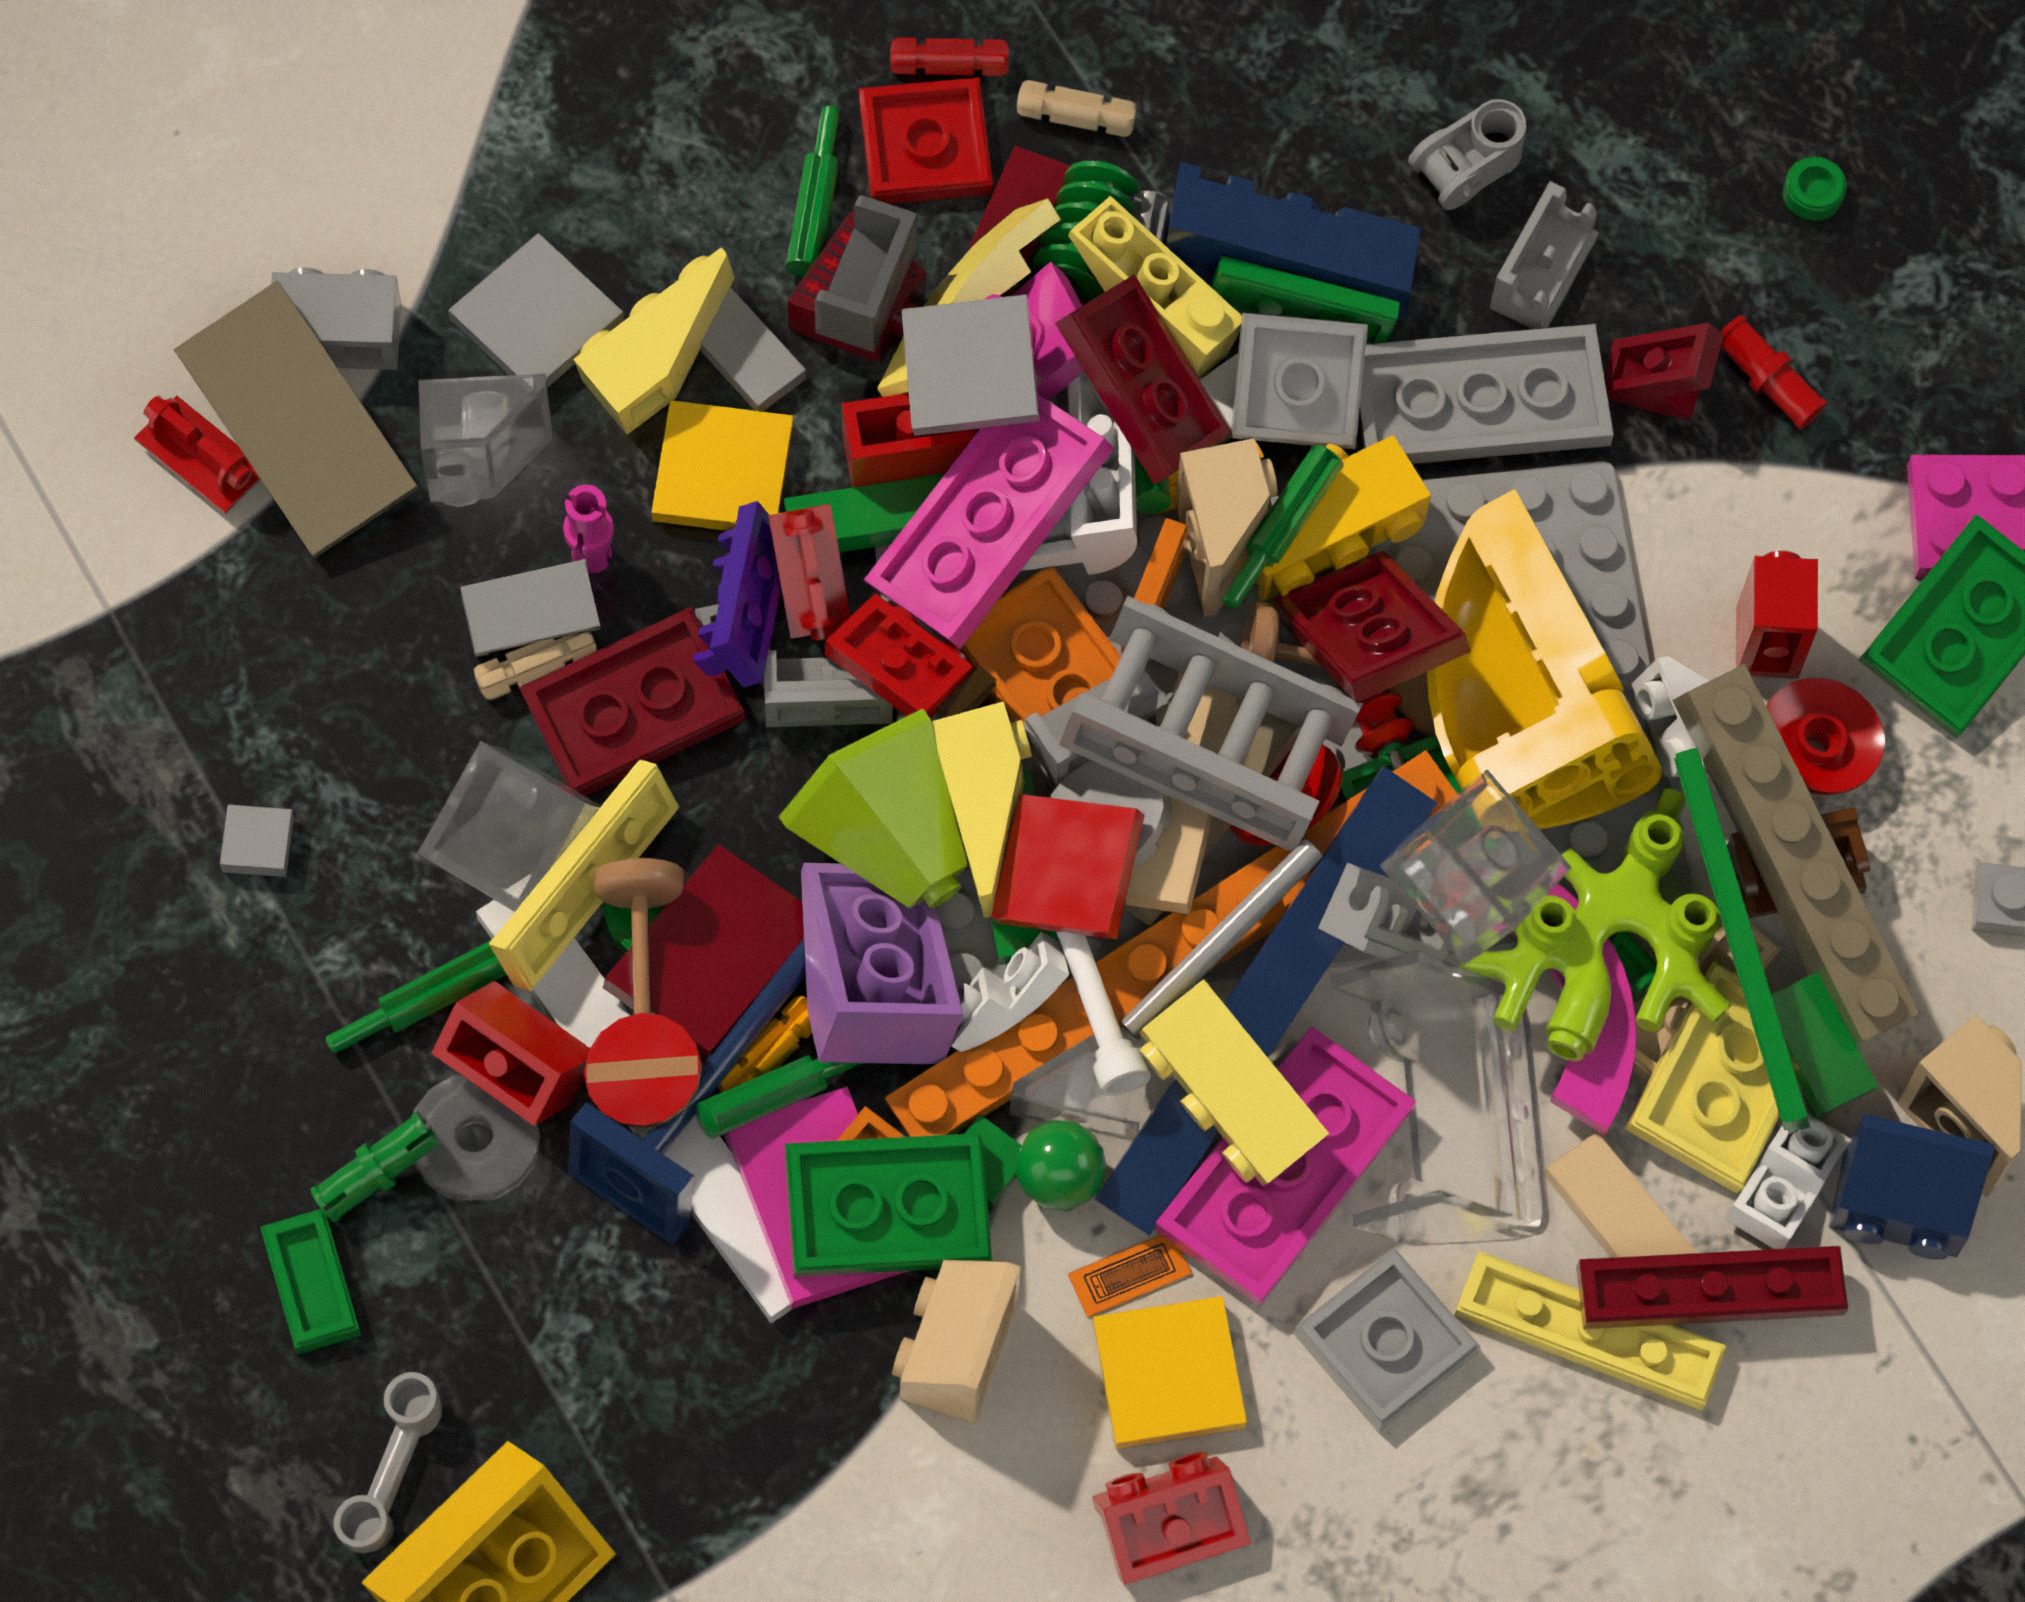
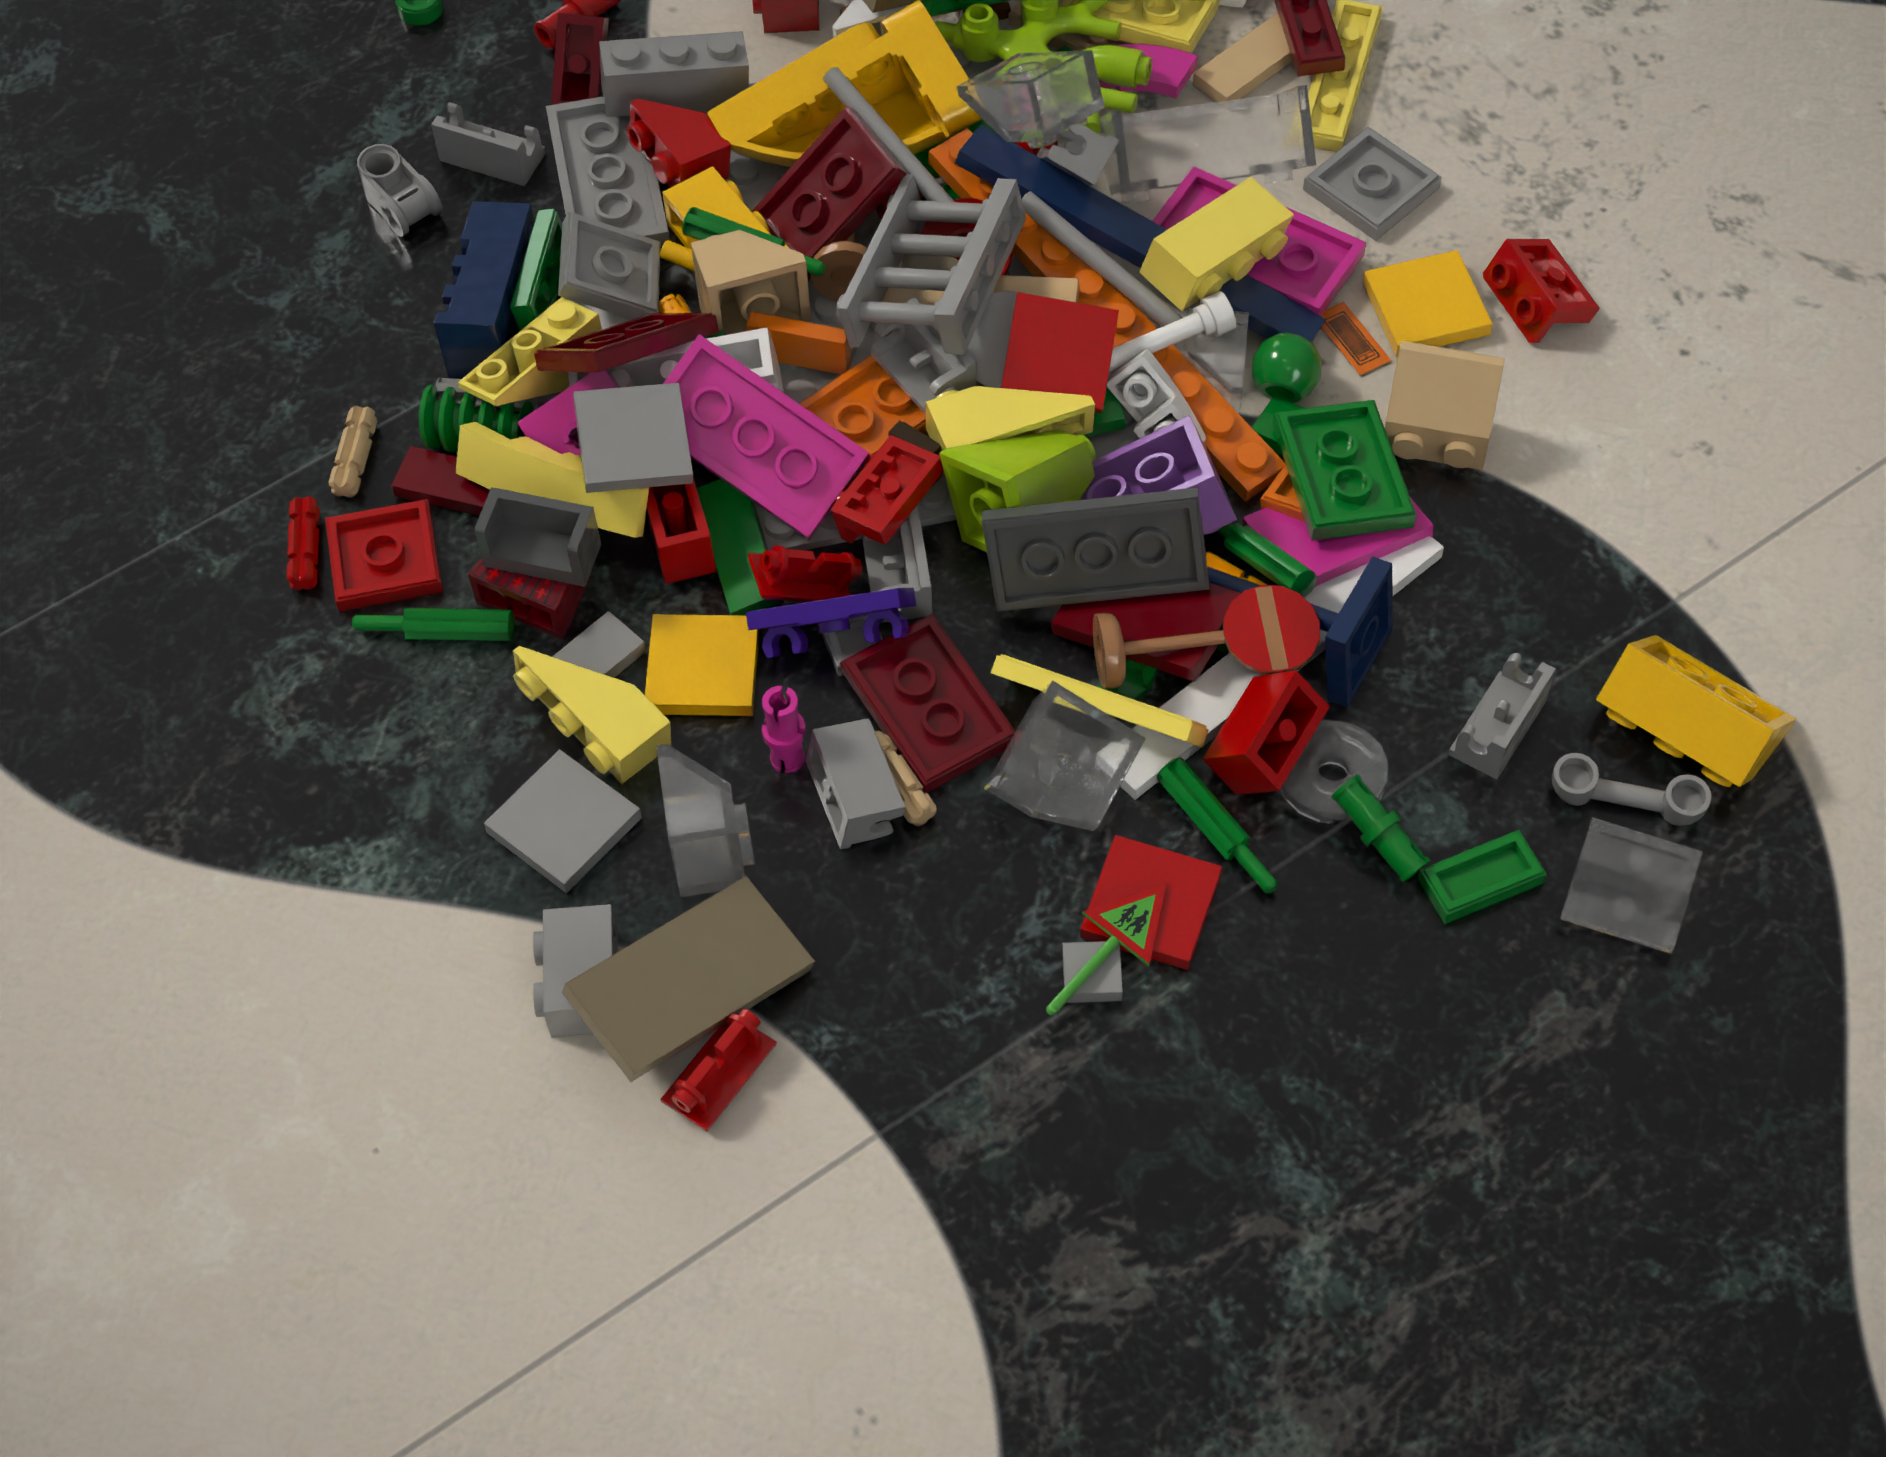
camera: 90 degrees left, 10 degrees down
(268, 1444) = (1631, 885): none -> clear slope
(297, 880) = (1129, 922): none -> piece
(334, 914) = (1186, 902): none -> red tile
(512, 1339) = (1503, 717): none -> light grey hinge
(767, 878) = (1096, 549): none -> dark grey tile
(1427, 694) = (852, 97): none -> light grey bar
(1486, 463) = (677, 141): none -> red slope
(1609, 465) = (673, 70): none -> light grey brick

